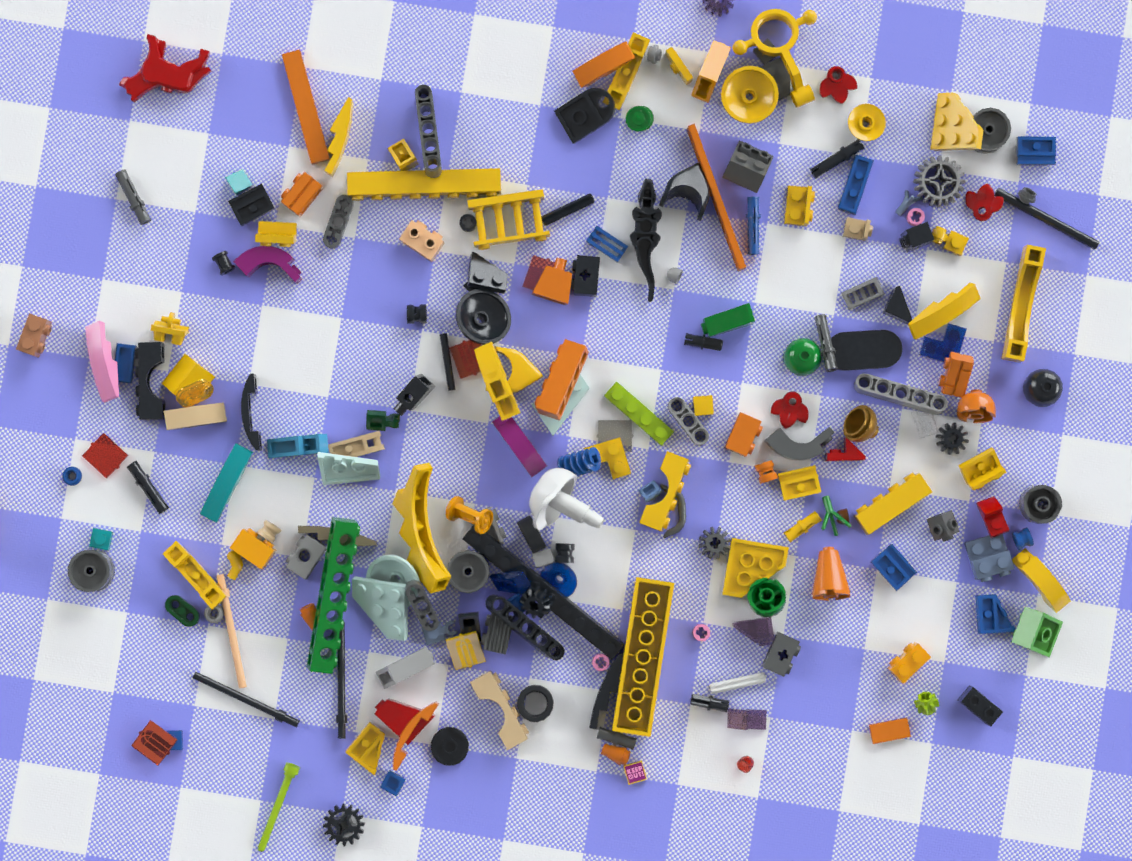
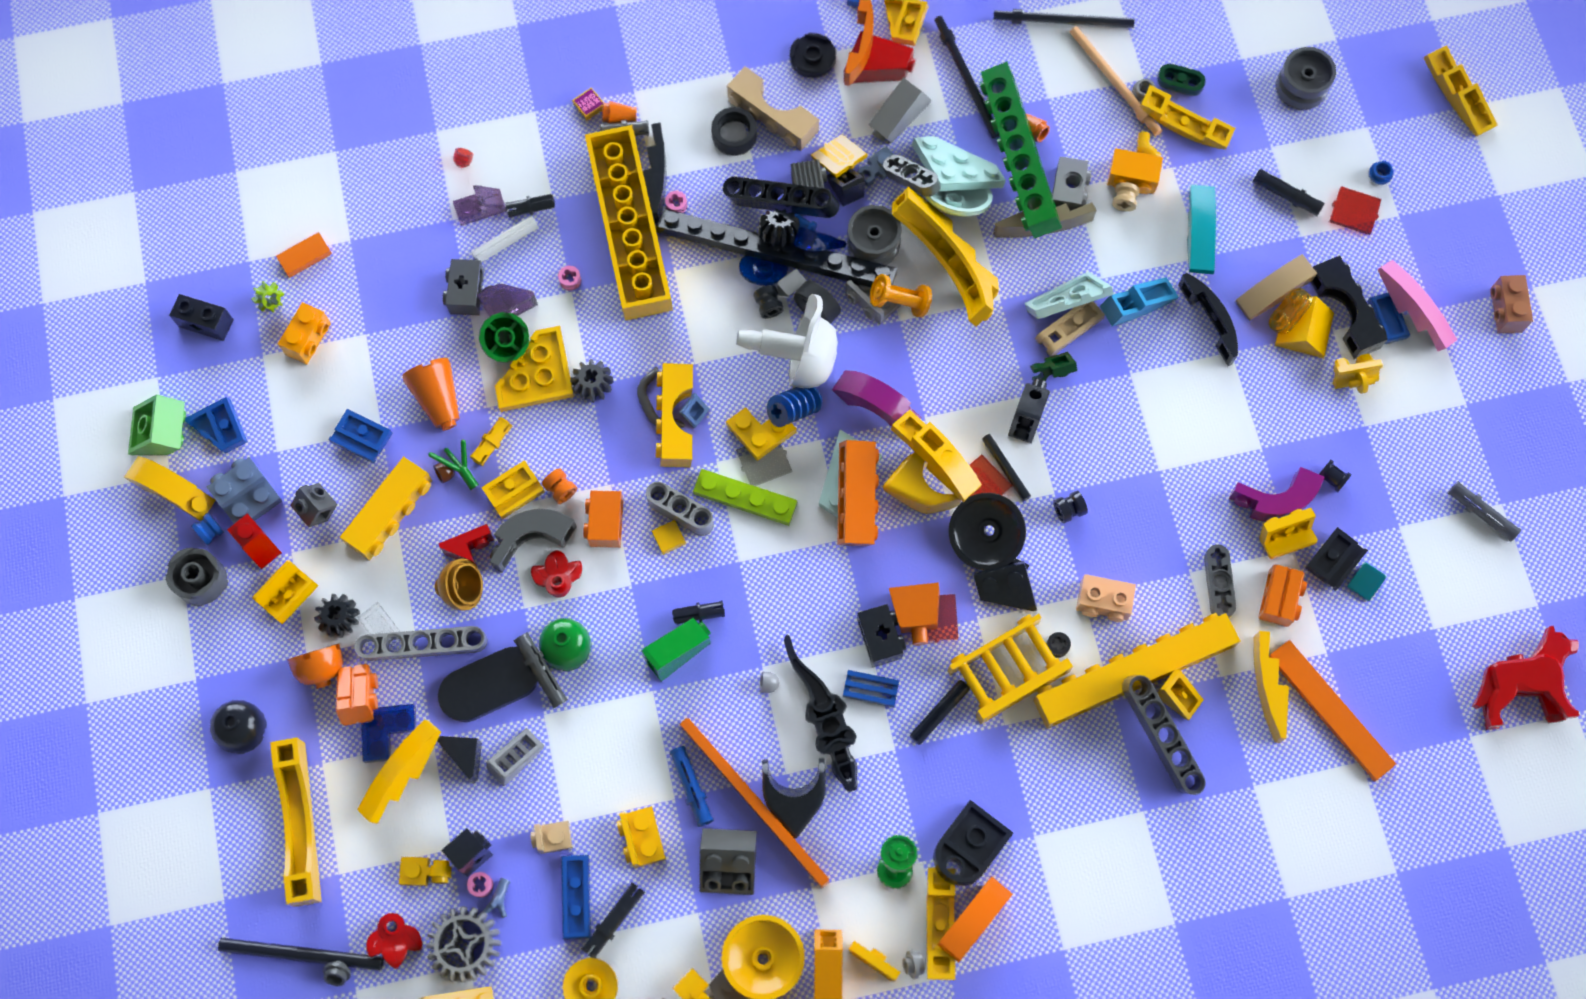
camera: 160 degrees right, 15 degrees down
(101, 539) = (1311, 120): teal plate -> none

